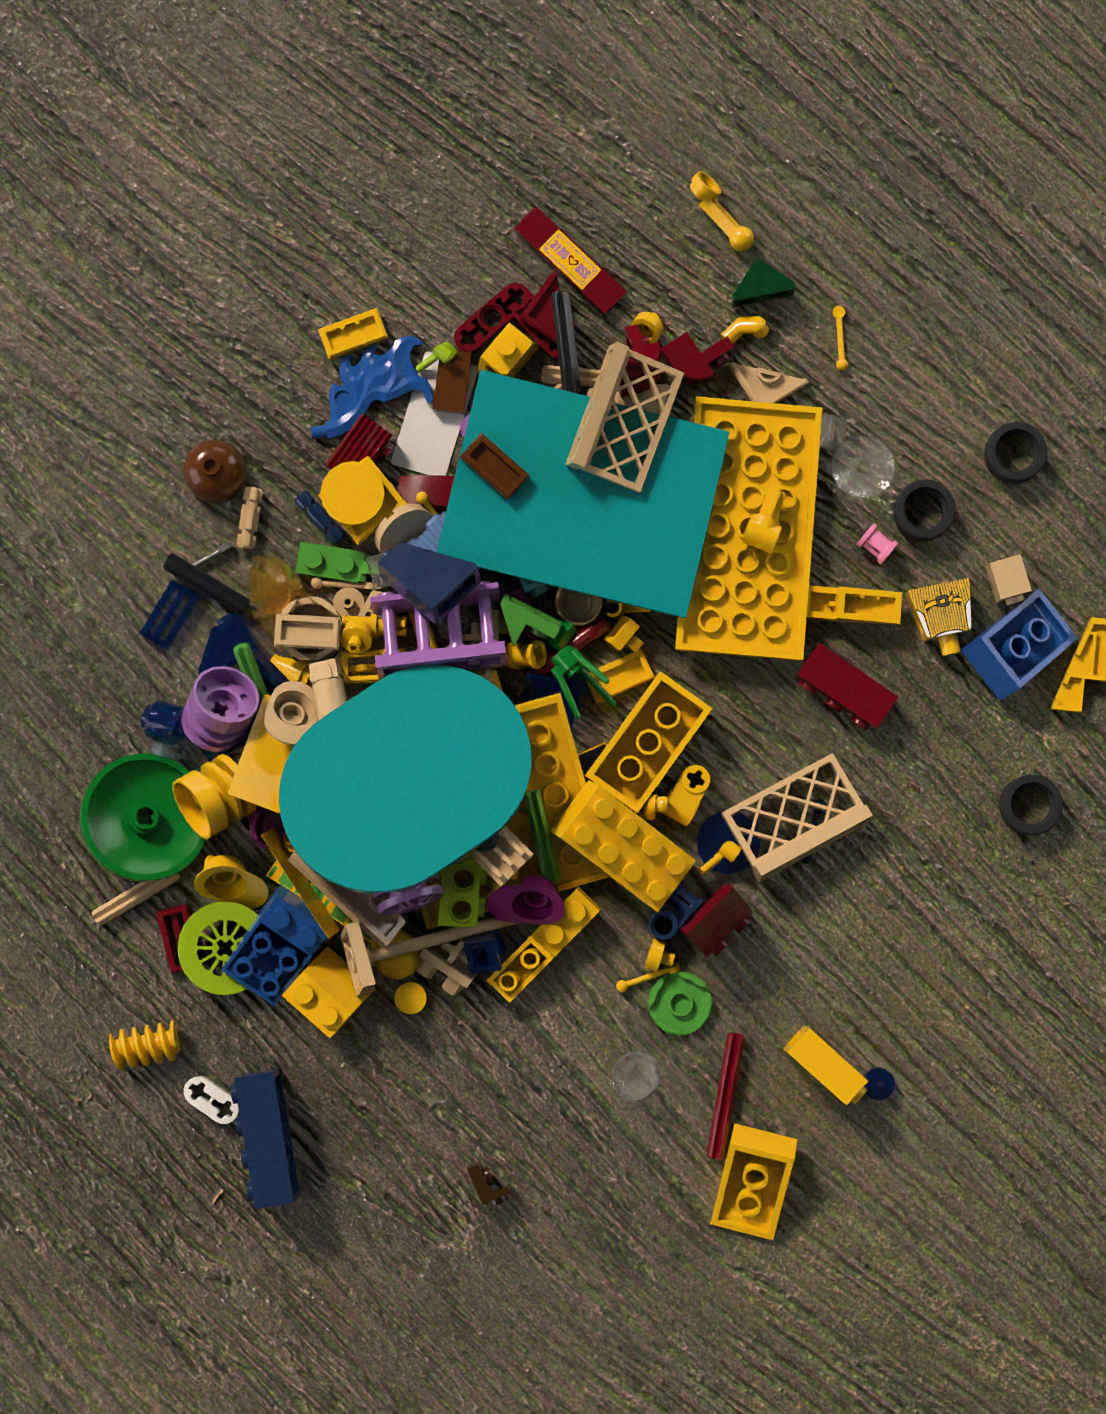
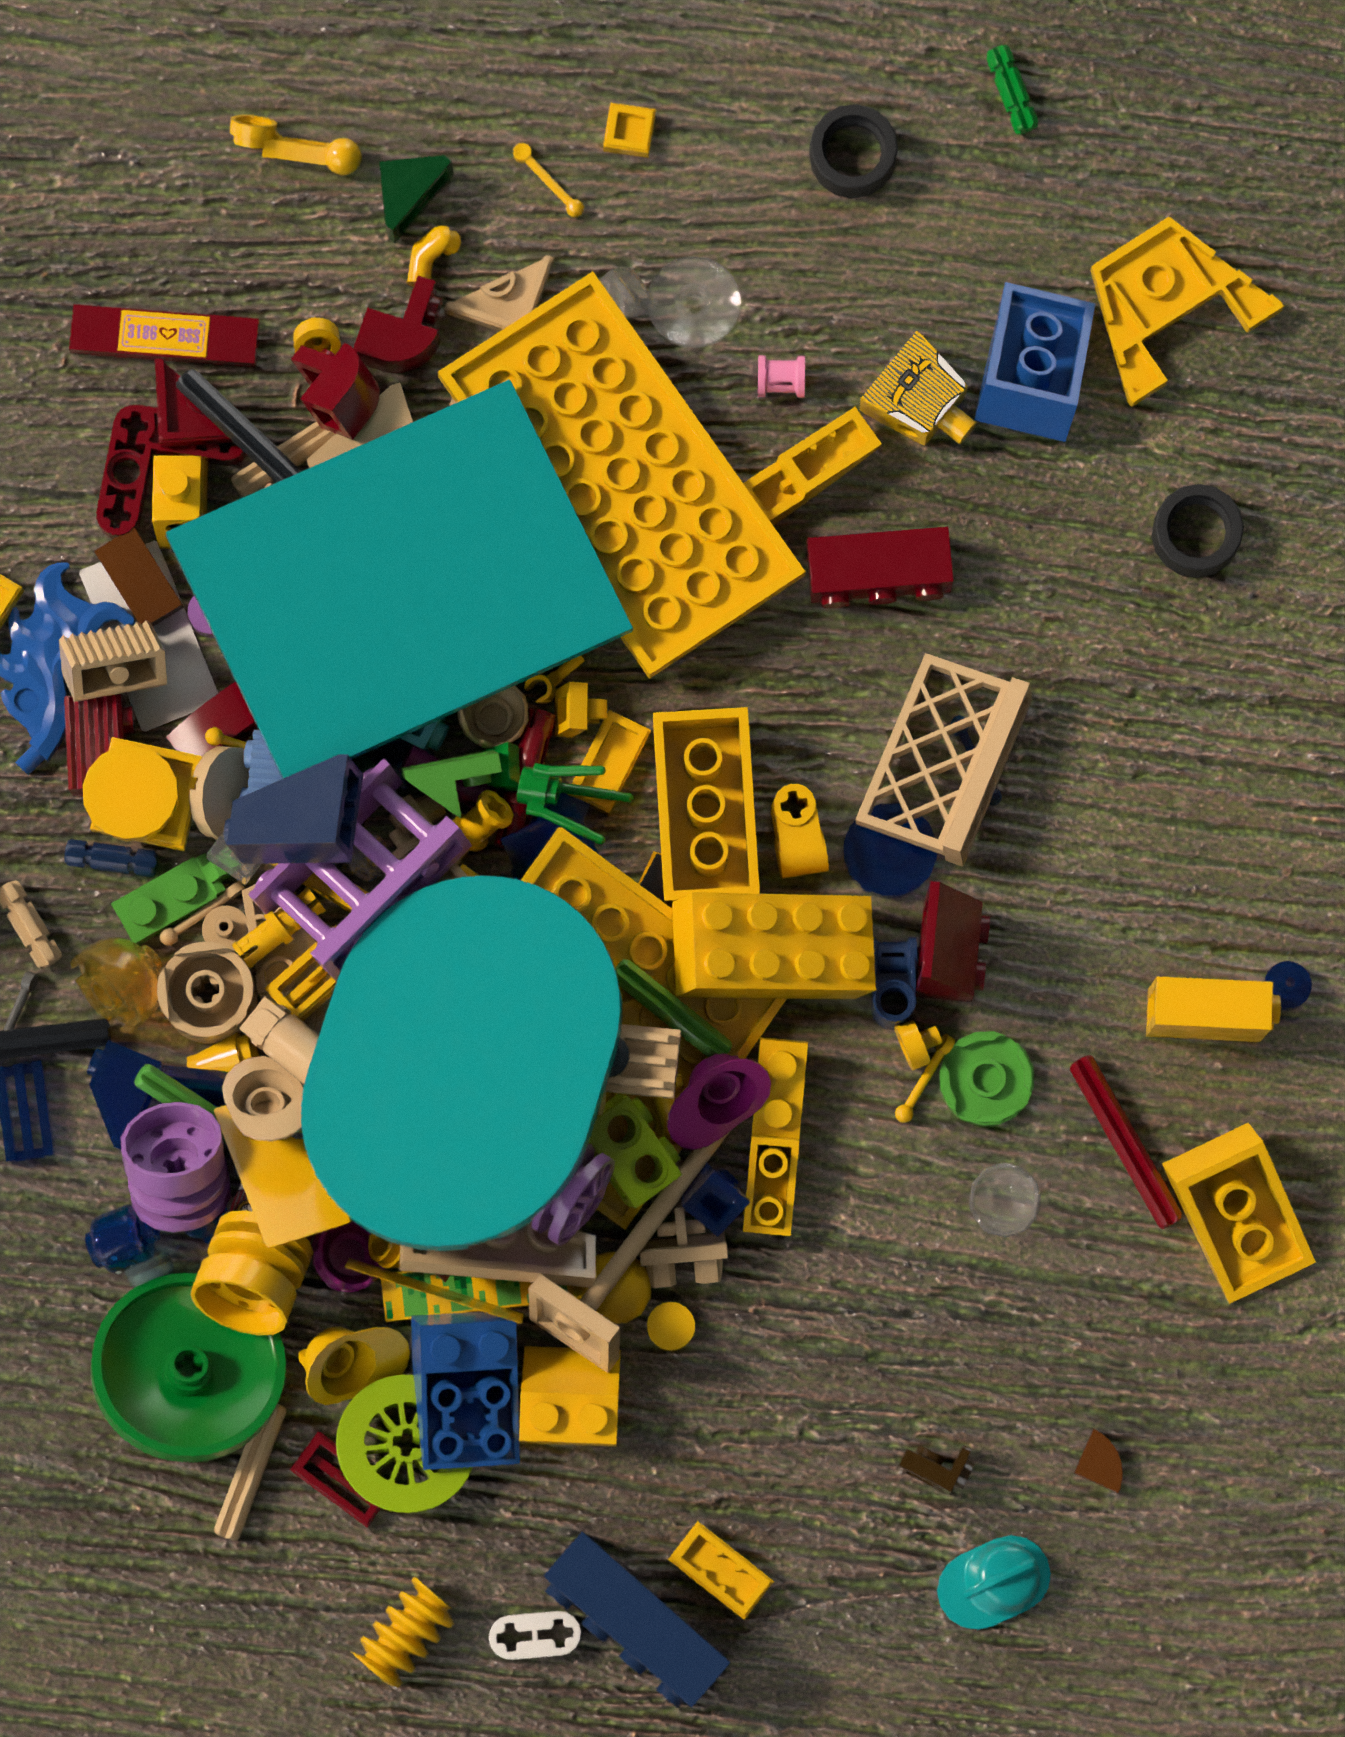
camera: 45 degrees left, 5 degrees down
(307, 632) = (207, 994): tan tile -> none
(333, 1145) = (720, 1570): none -> yellow plate
(357, 637) = (269, 954): yellow tile -> none
(401, 414) = (112, 661): none -> tan brick
(444, 352) = (104, 552): lime hand -> none
(469, 1266) = (993, 1582): none -> teal piece
(494, 466) = (272, 628): reddish brown tile -> none
(574, 1251) = (1100, 1463): none -> reddish brown tile
(599, 407) = (339, 468): tan fence -> none
(654, 805) = (771, 871): yellow arm -> none
(728, 850) = (897, 857): yellow hand -> none
(764, 528) = (638, 457): yellow axle -> none
(905, 345) = (629, 130): none -> yellow tile
(937, 490) = (807, 262): black tyre -> none
(1008, 580) = (963, 298): tan brick -> none

